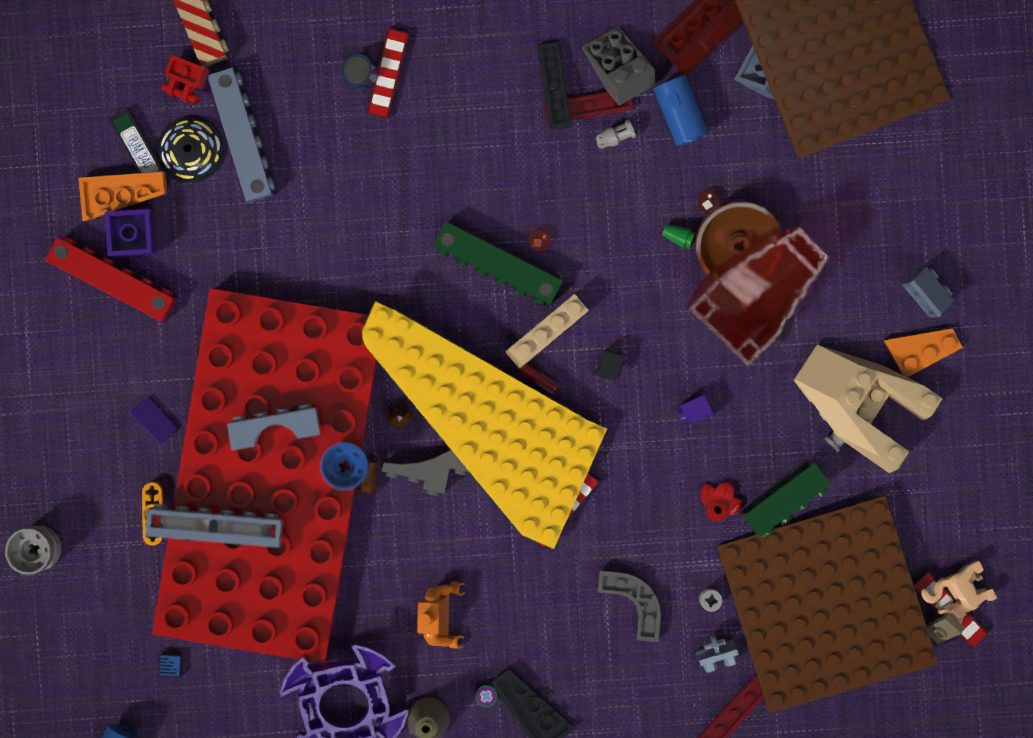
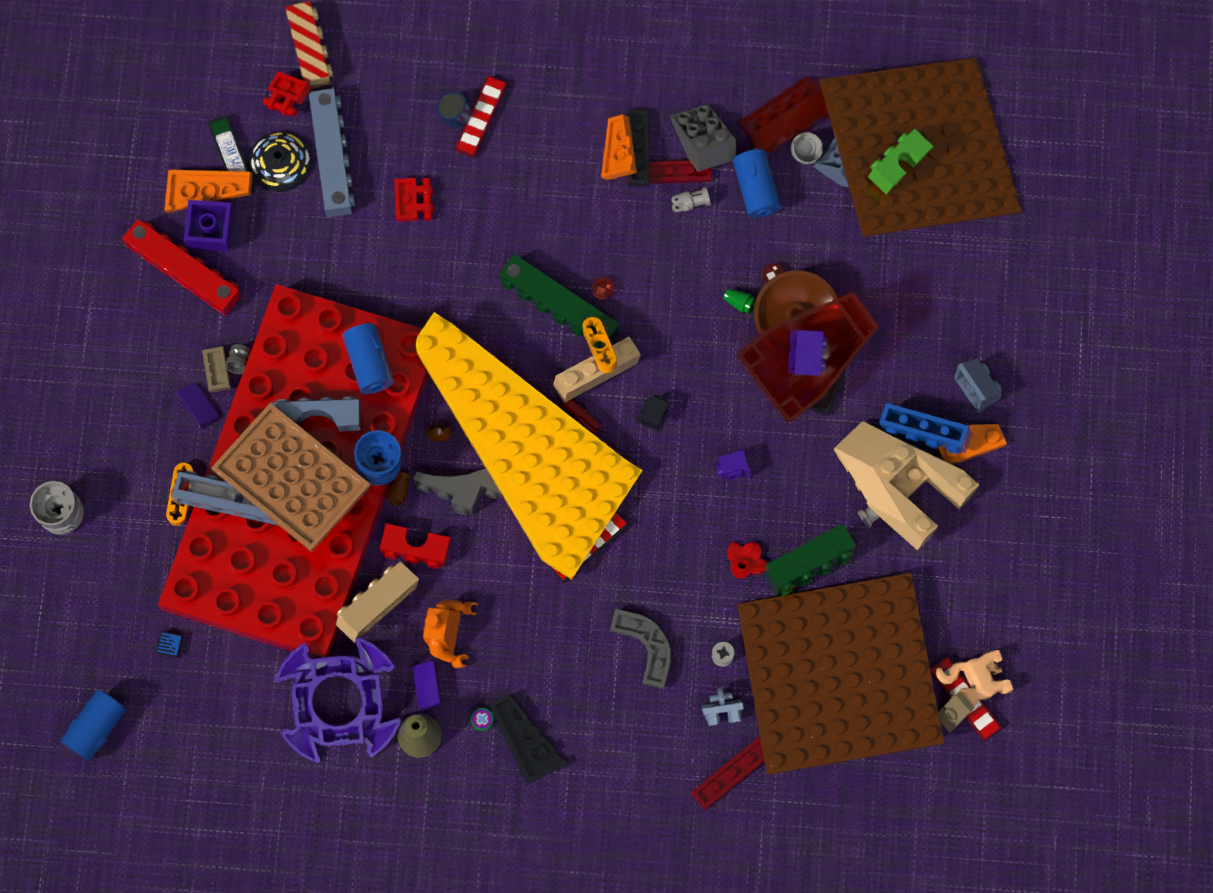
camera: 15 degrees right, 15 degrees down
(165, 381) = (215, 369): none -> dark tan plate
(185, 368) = (238, 358): none -> dark grey wheel
(261, 501) = (291, 477): none -> medium nougat plate
(317, 363) = (368, 358): none -> blue piece
(326, 173) = (406, 199): none -> red plate
(366, 600) = (377, 601): none -> tan brick
(374, 536) = (433, 552): none -> red arch
(427, 670) = (426, 685): none -> dark purple slope
(535, 94) = (619, 150): none -> orange wing
(546, 294) = (599, 352): none -> light orange beam
(726, 63) = (806, 148): none -> light grey hair
(757, 292) = (806, 352): none -> dark purple brick
(815, 87) = (887, 172): none -> bright green arch
(882, 347) = (925, 428): none -> blue brick

